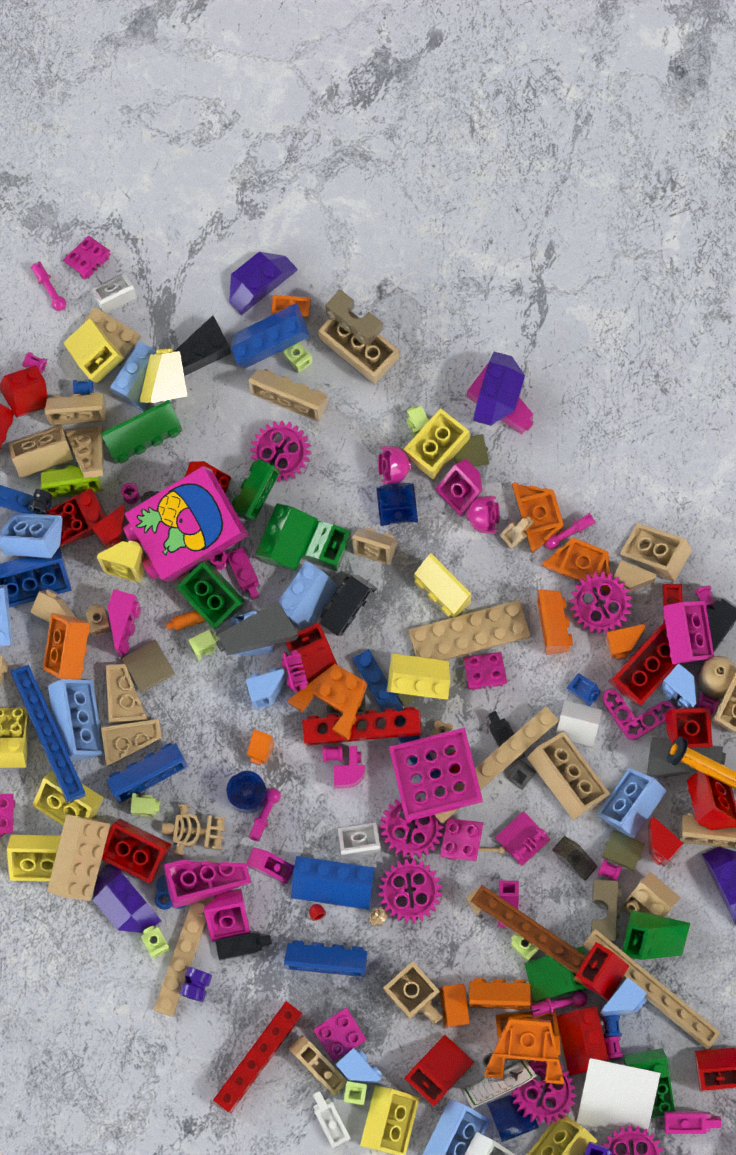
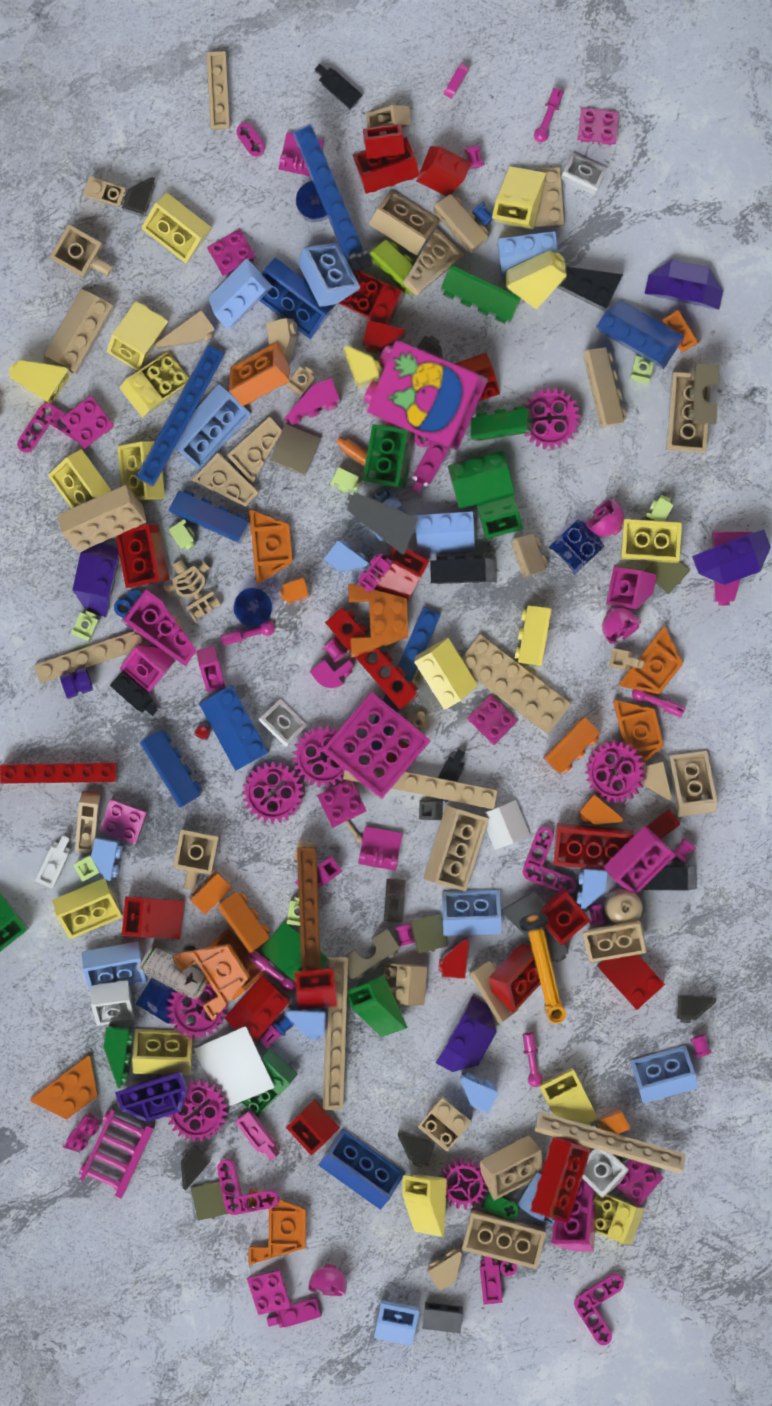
camera: 45 degrees right, 15 degrees up
(125, 492) = (424, 330): dark pink bush -> none
(207, 742) = (270, 545): none -> orange wing
(378, 916) = (234, 782): tan plate -> none
(584, 689) = (535, 809): blue bracket -> none

